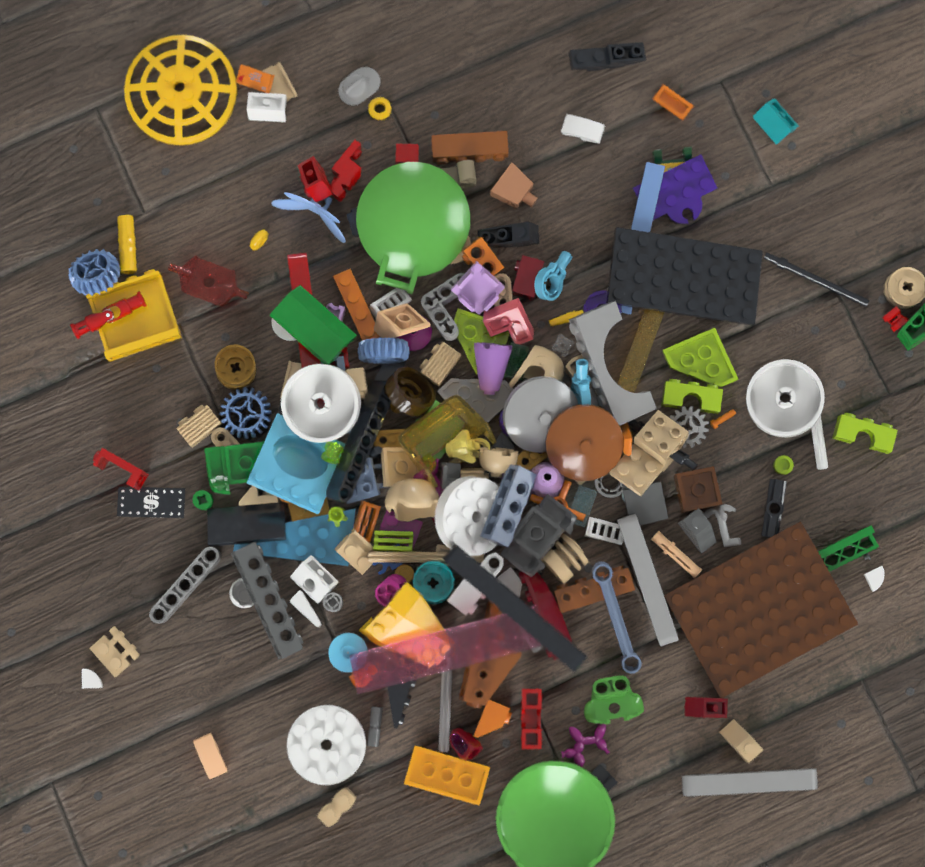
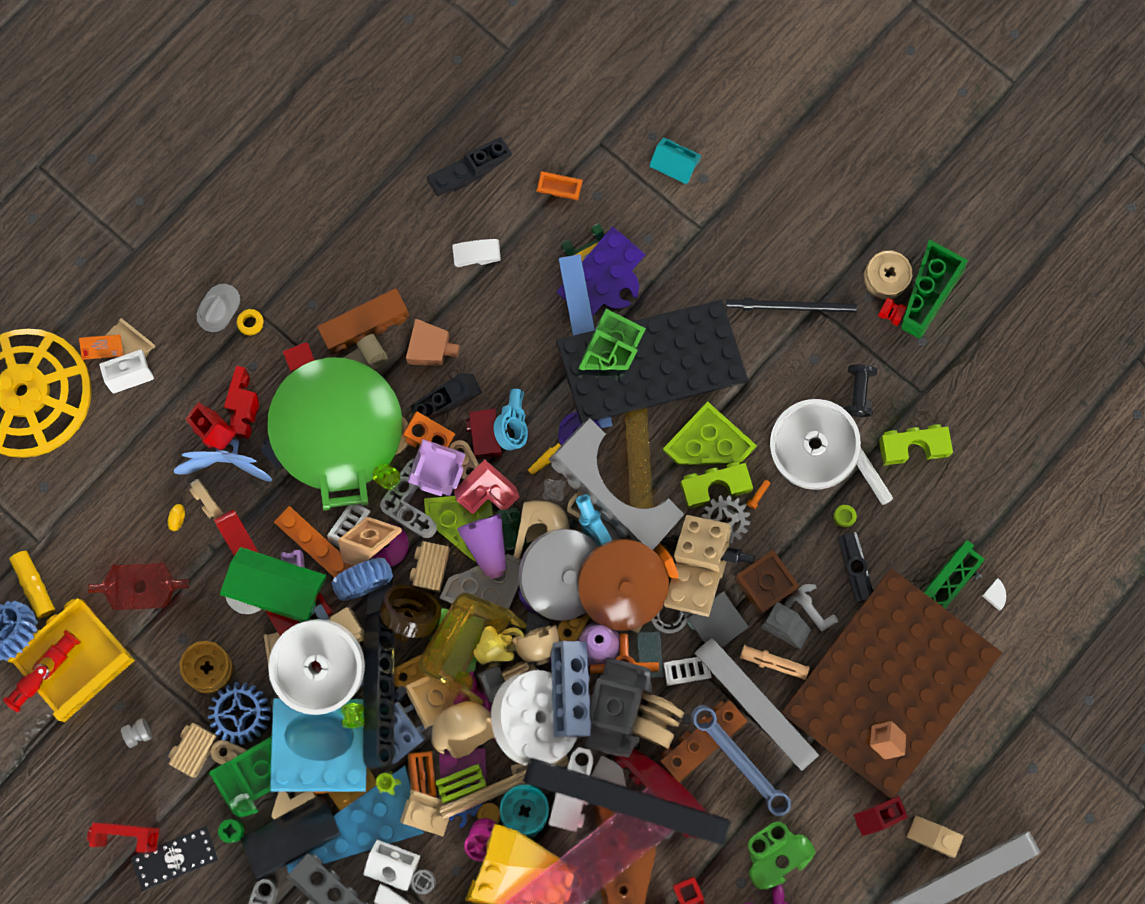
camera: 20 degrees left, 5 degrees down
(163, 394) = (139, 731): none -> light grey wheel
(288, 243) = (210, 506): none -> tan plate
(440, 279) = (391, 479): none -> clear neon green wheel
(659, 249) = (612, 344): none -> bright green slope
(737, 652) = (888, 740): none -> nougat panel
(839, 373) = (862, 374): none -> black hose

